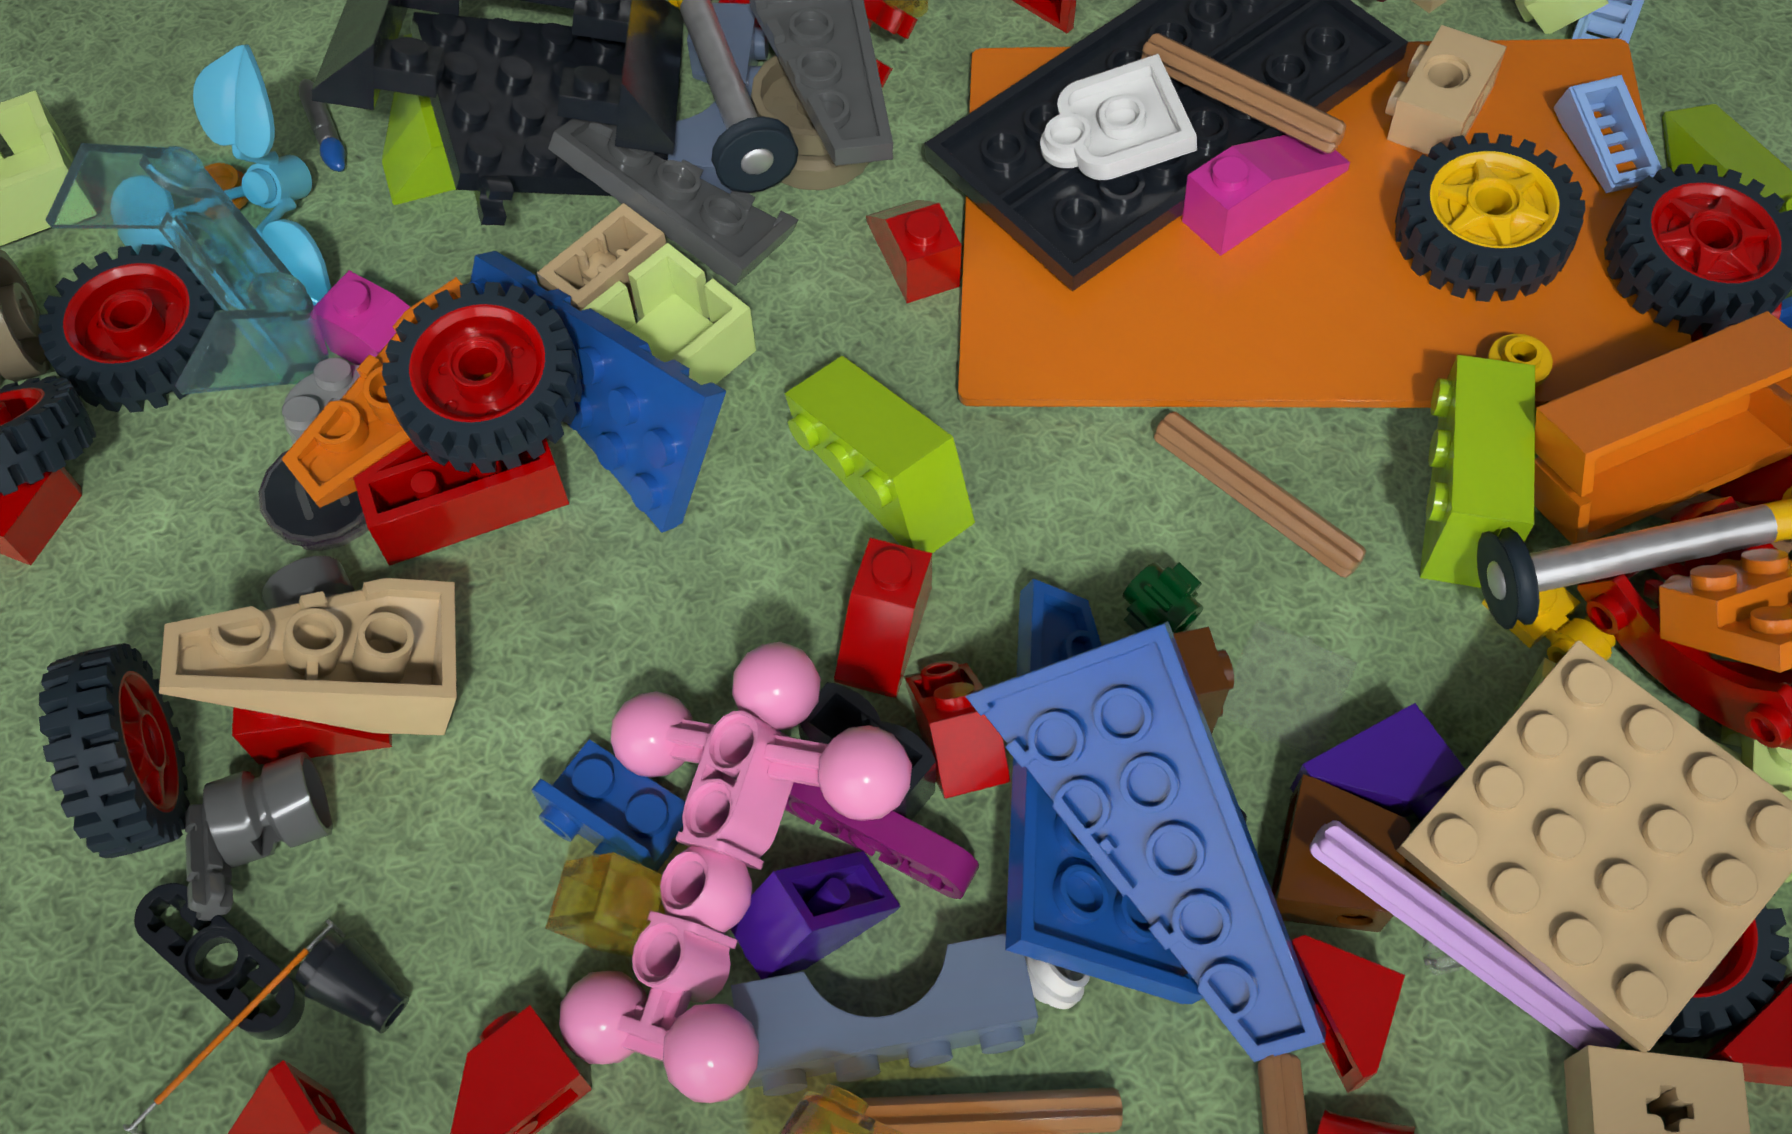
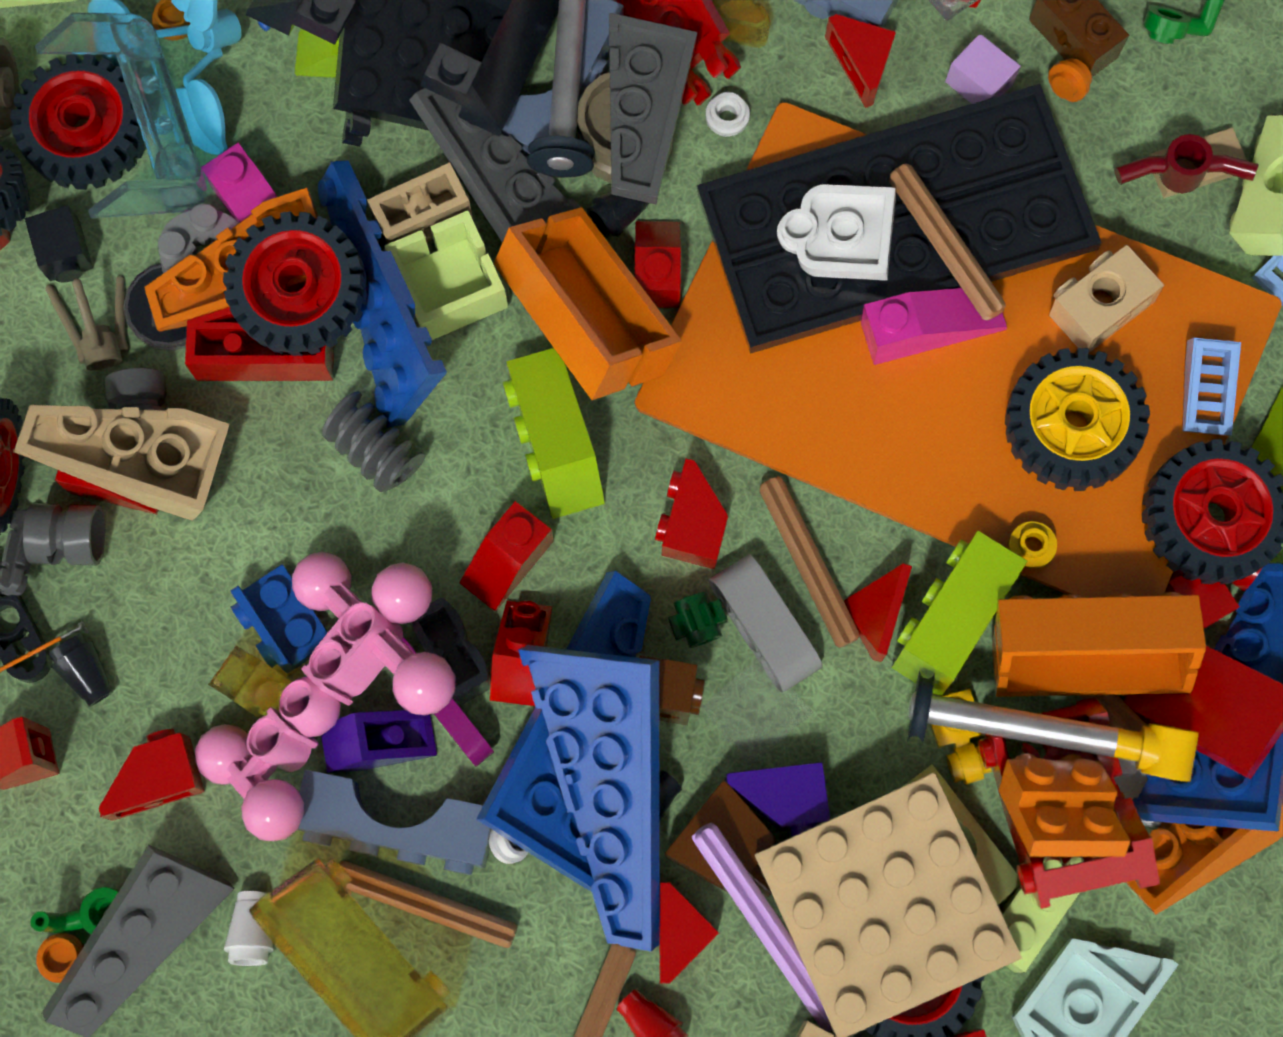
camera: 20 degrees right, 15 degrees up
(149, 466) = (59, 244): none -> black brick
(239, 564) = (99, 346): none -> dark tan plant
(650, 554) = (368, 445): none -> dark grey piece
(840, 206) = (614, 213): none -> black cone
(857, 293) = (586, 302): none -> orange piece
(919, 79) = (727, 102): none -> white plate
(1102, 492) = (696, 519): none -> red slope
(1250, 575) = (765, 622): none -> light grey beam
(1378, 513) = (877, 610): none -> red slope

